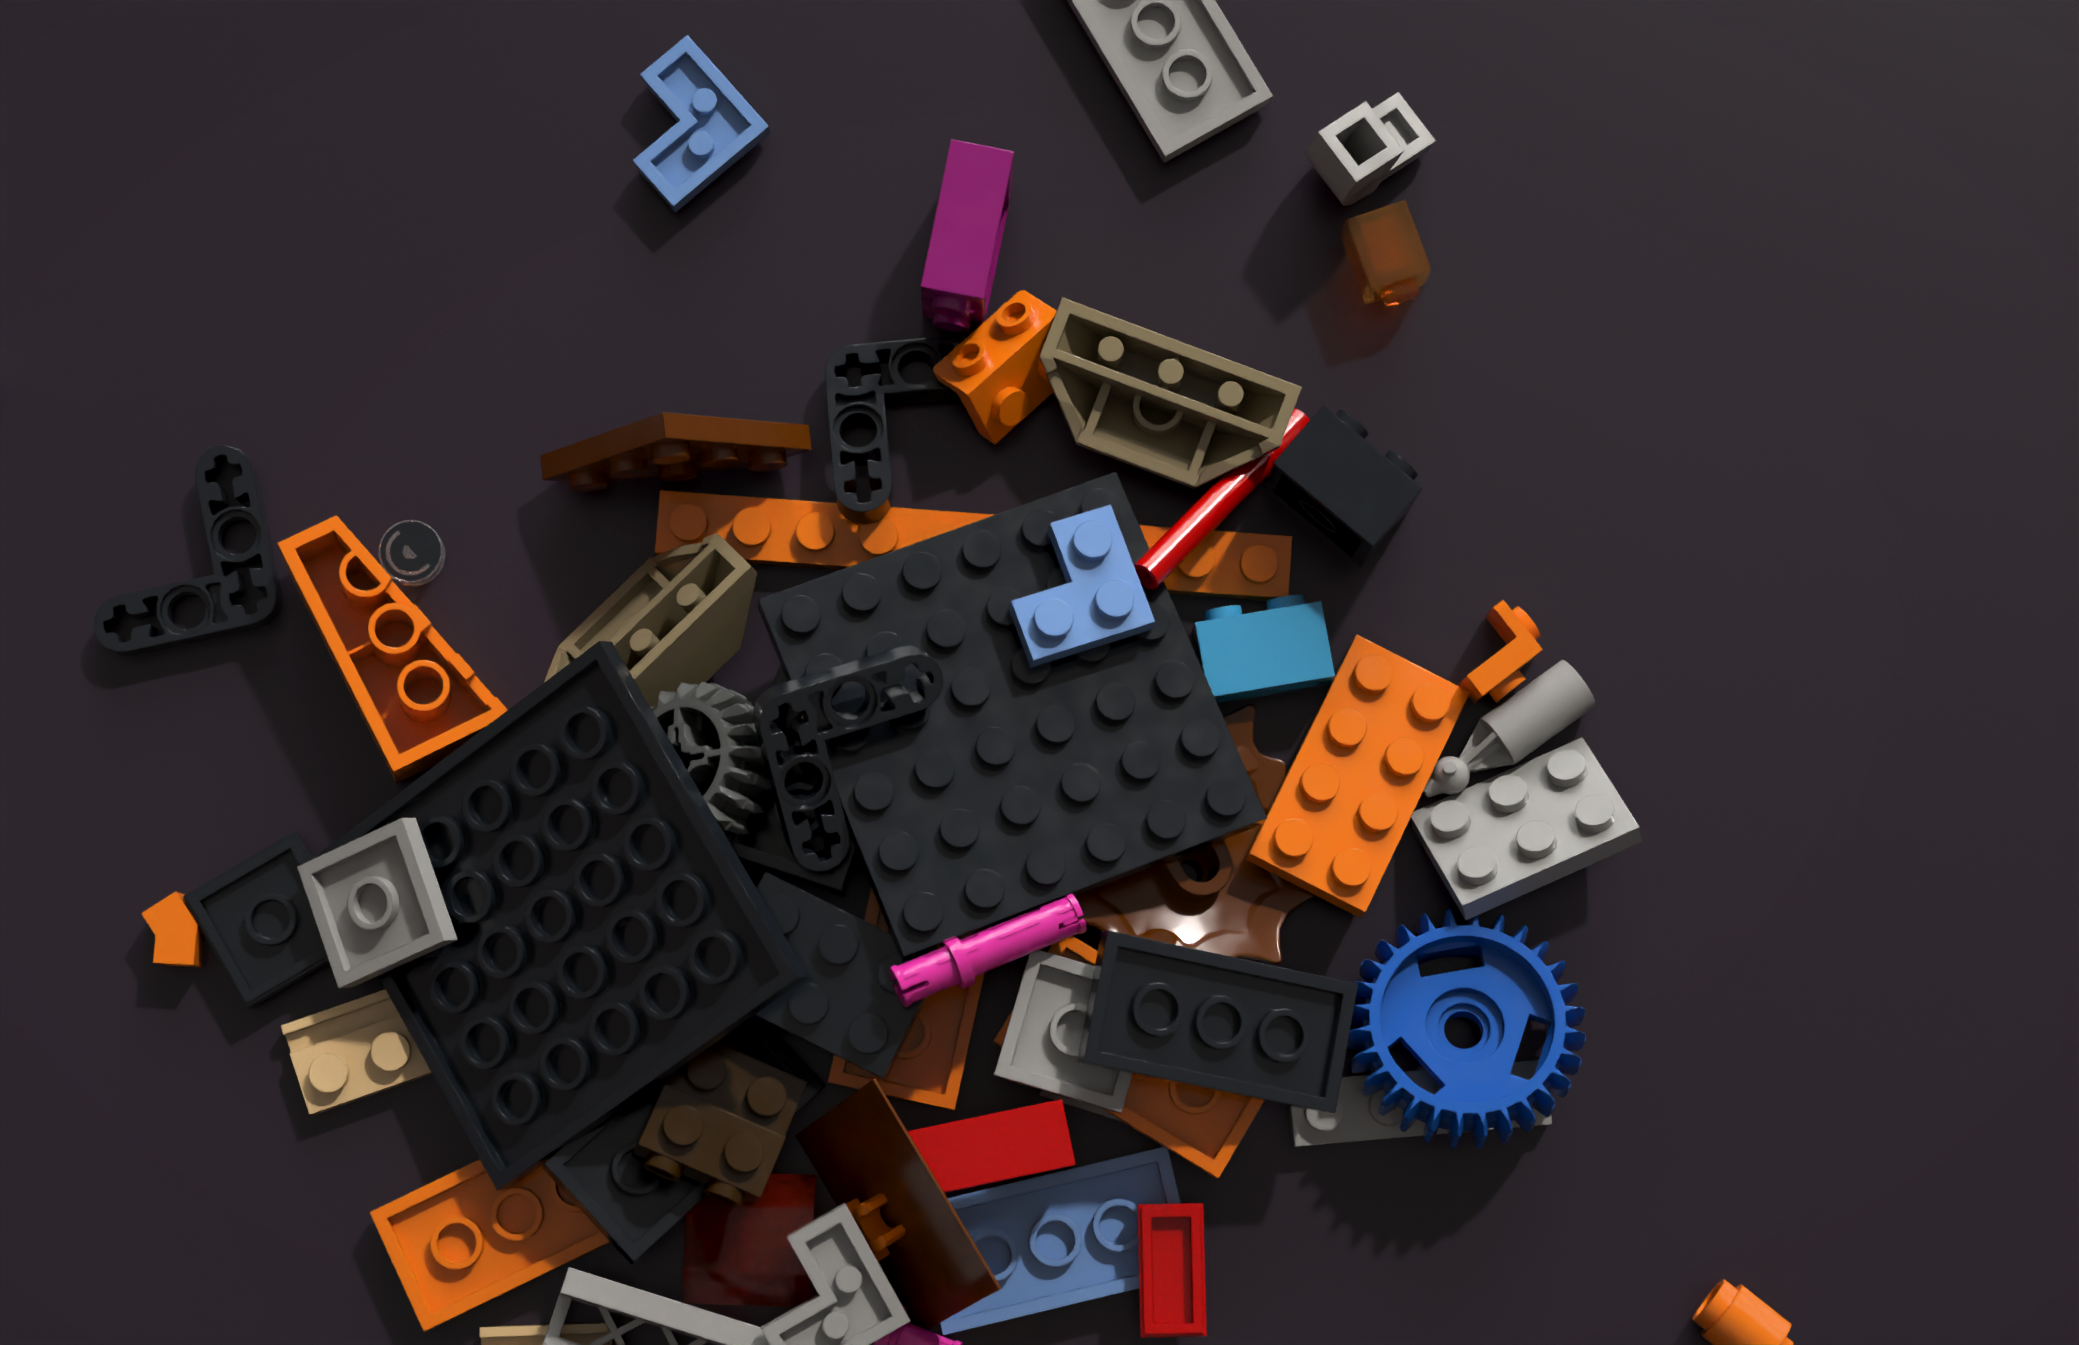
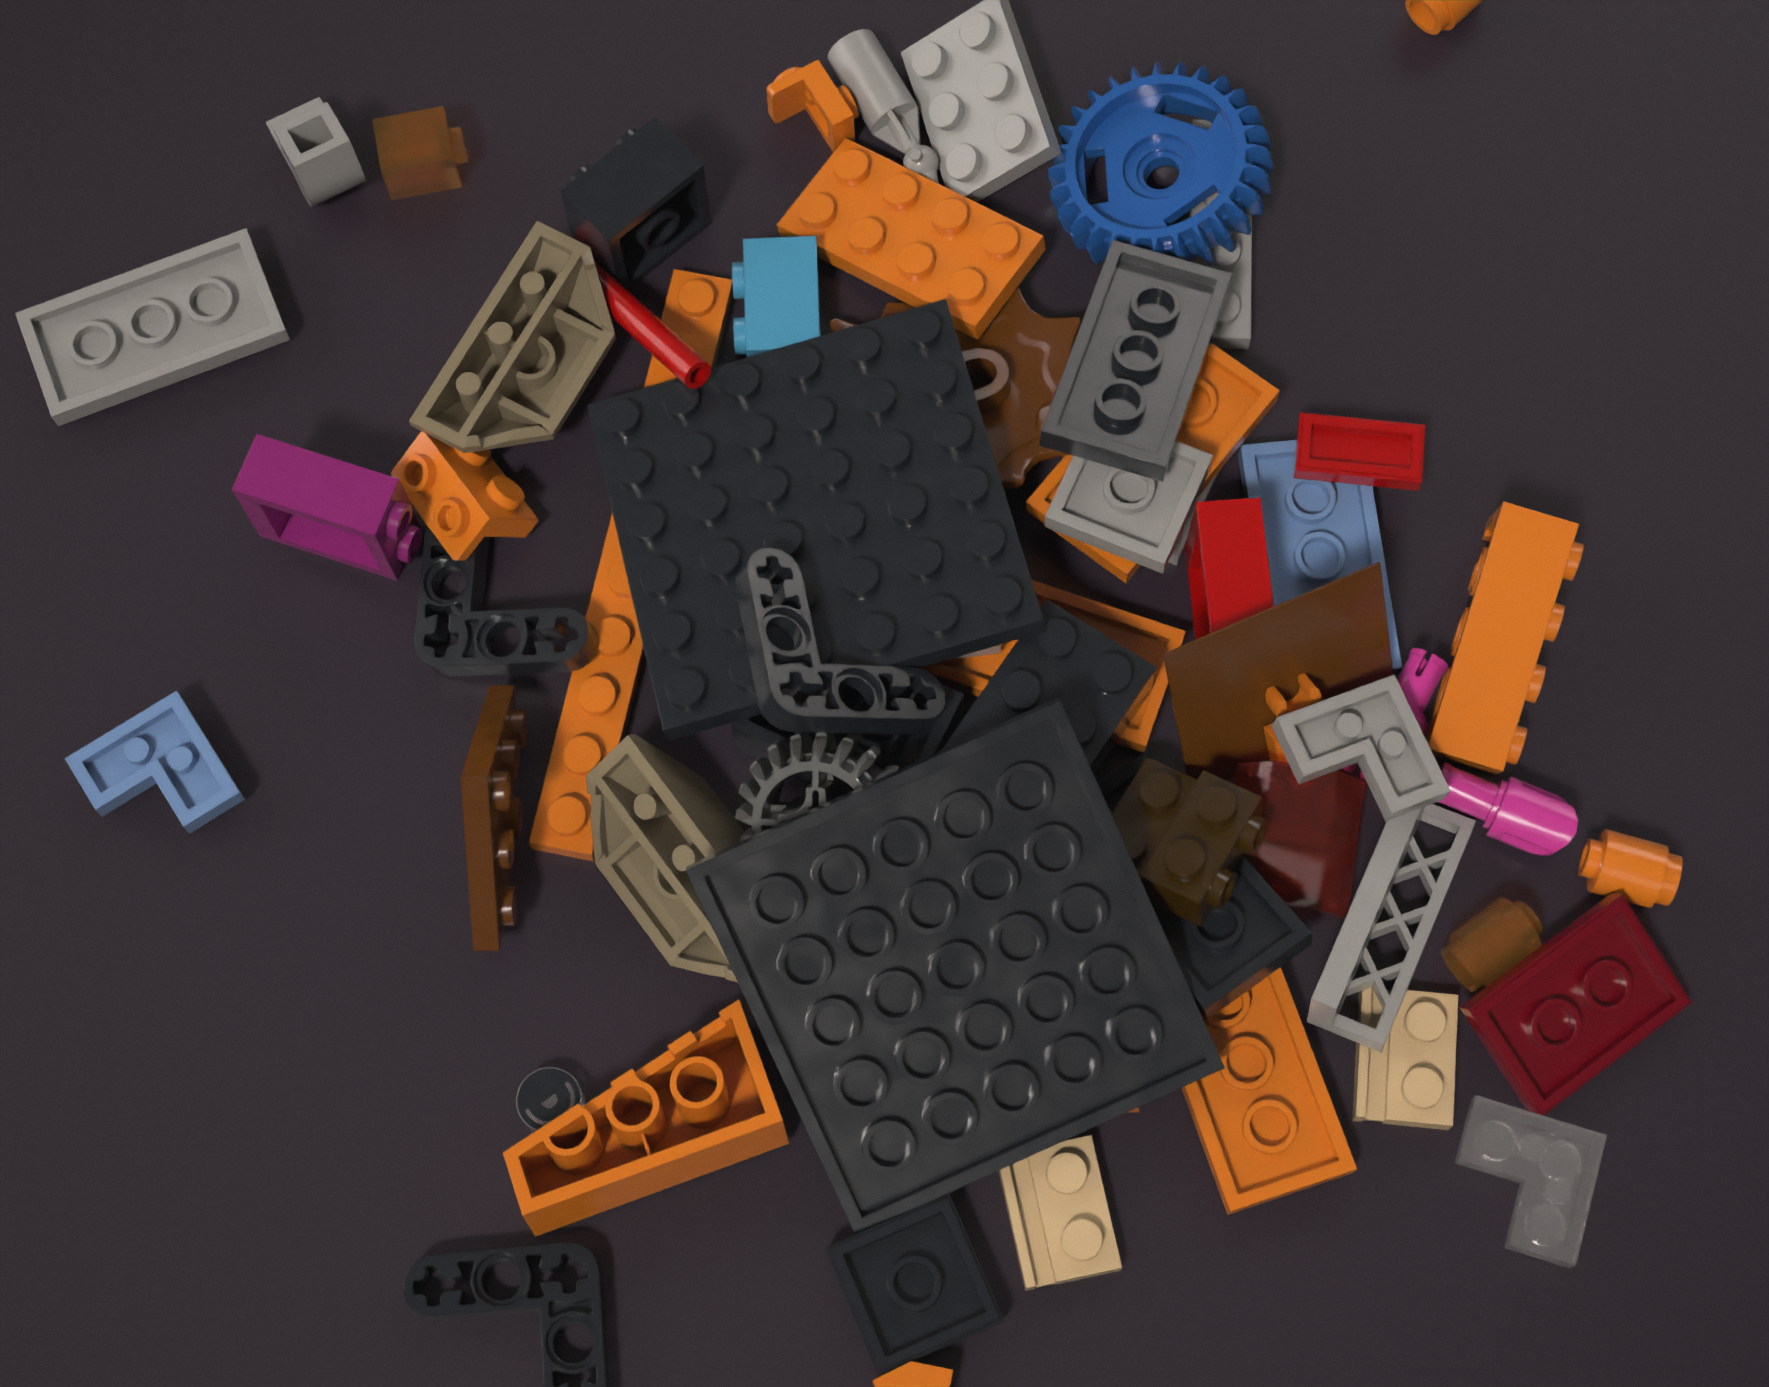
camera: 75 degrees left, 10 degrees down
(377, 902) = (916, 1156): light grey plate -> none
(965, 958) = (1050, 567): dark pink pin -> none
(1100, 596) = (705, 414): medium blue plate -> none

